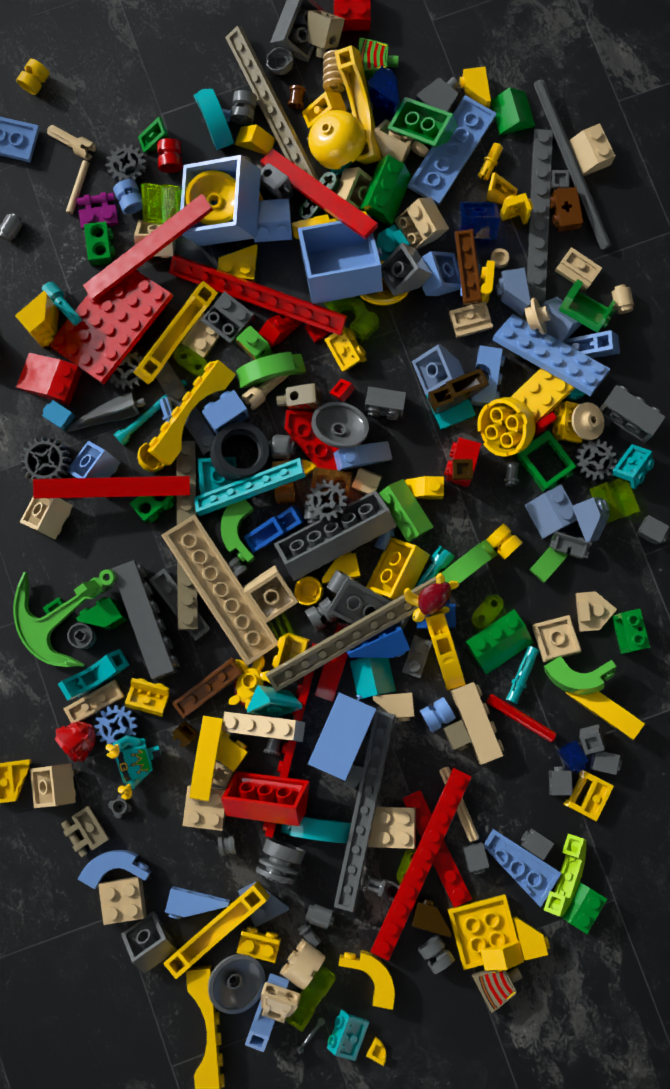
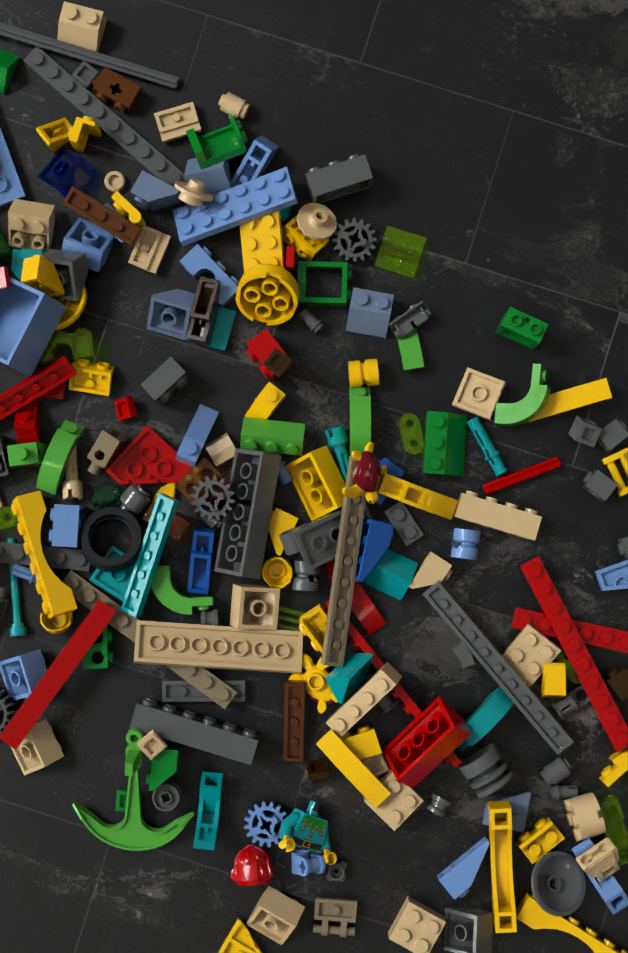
camera: 50 degrees left, 5 degrees up
(94, 702) = (231, 827): tan tile -> none
(99, 866) = (376, 911): medium blue arch -> none
(109, 777) = (306, 862): none -> medium blue piece
(111, 593) = (151, 744): none -> tan tile
(147, 697) = (262, 778): yellow bracket -> none
(269, 424) = (106, 495): none -> clear green head
(340, 425) = (152, 428): dark grey dish -> none
(342, 736) = (424, 640): medium blue container -> none
(387, 860) = (553, 680): none -> yellow slope
(392, 255) = (42, 276): none -> yellow slope
(457, 735) = (495, 541): dark tan brick -> none
(462, 811) = (560, 585): tan axle -> none
(476, 857) = (607, 604): dark grey brick -> none
(490, 161) = (22, 121): yellow axle -> none
(573, 756) = (586, 458): clear blue brick -> none
(592, 517) = (401, 284): sand blue slope -> none
(592, 611) = (479, 345): tan plate -> none
(634, 465) = (384, 211): teal bracket -> none
(653, 530) = (451, 240): dark grey brick -> none

